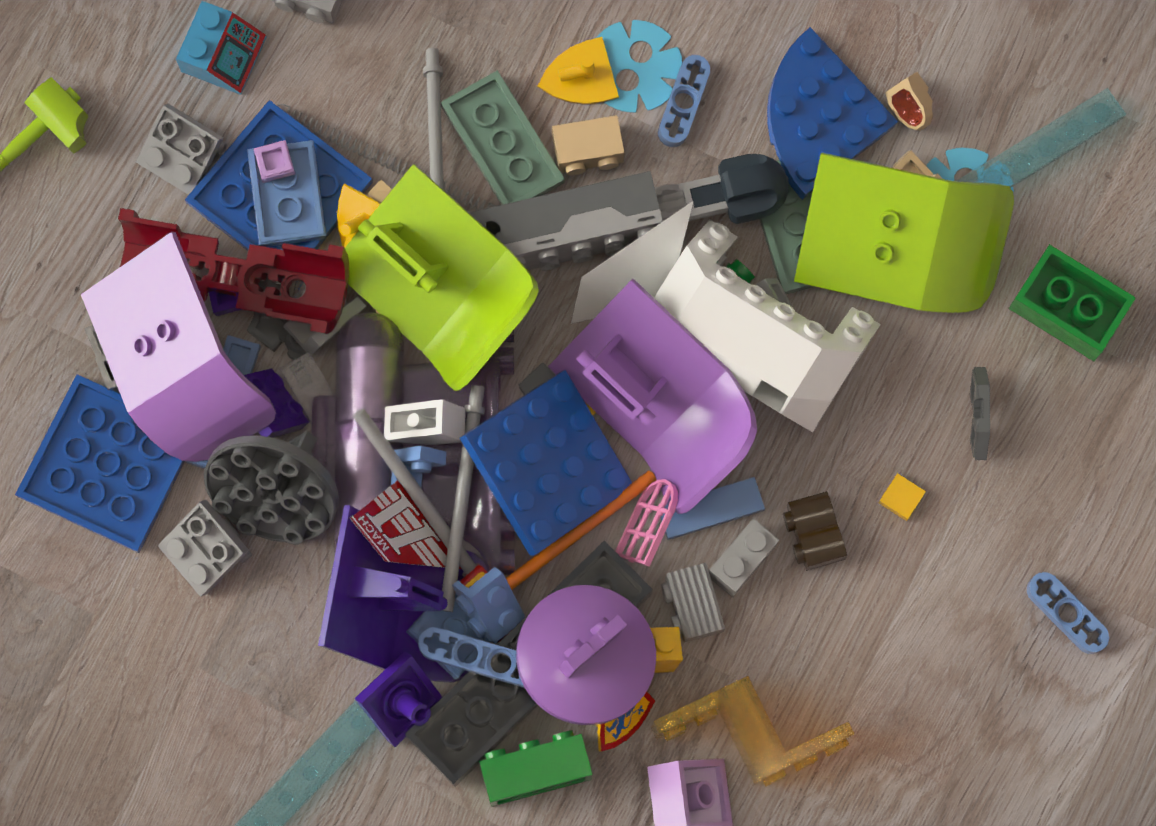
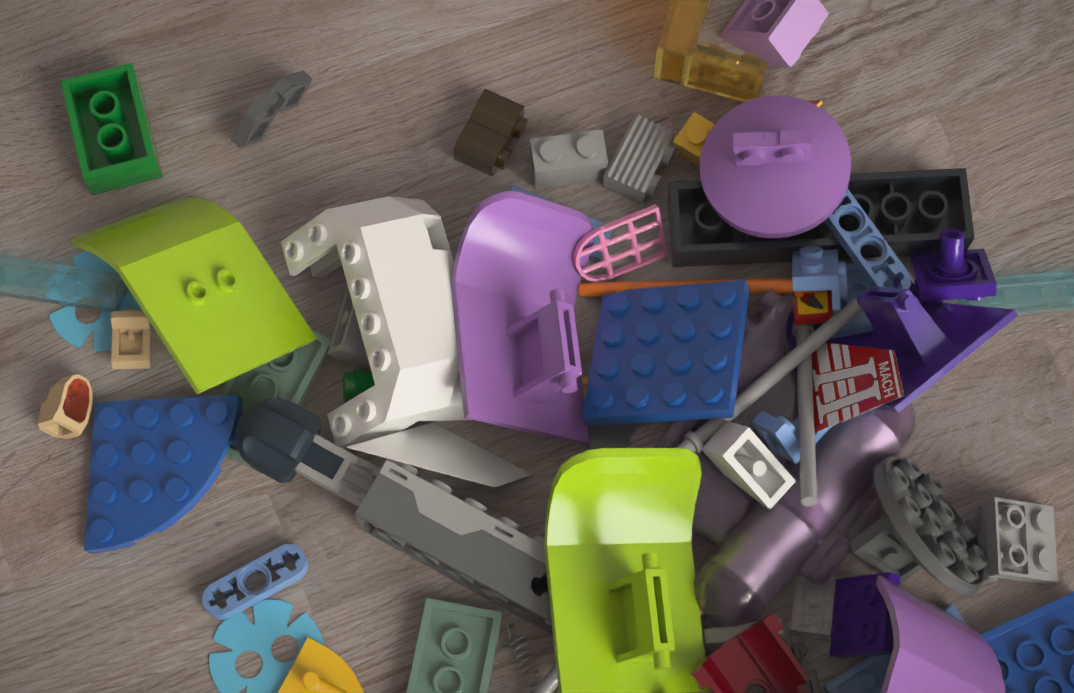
camera: 135 degrees left, 5 degrees down
(535, 768) = (887, 128): green brick -> none
(588, 145) = (377, 611): tan brick -> none
(902, 497) = (394, 106): yellow tile -> none

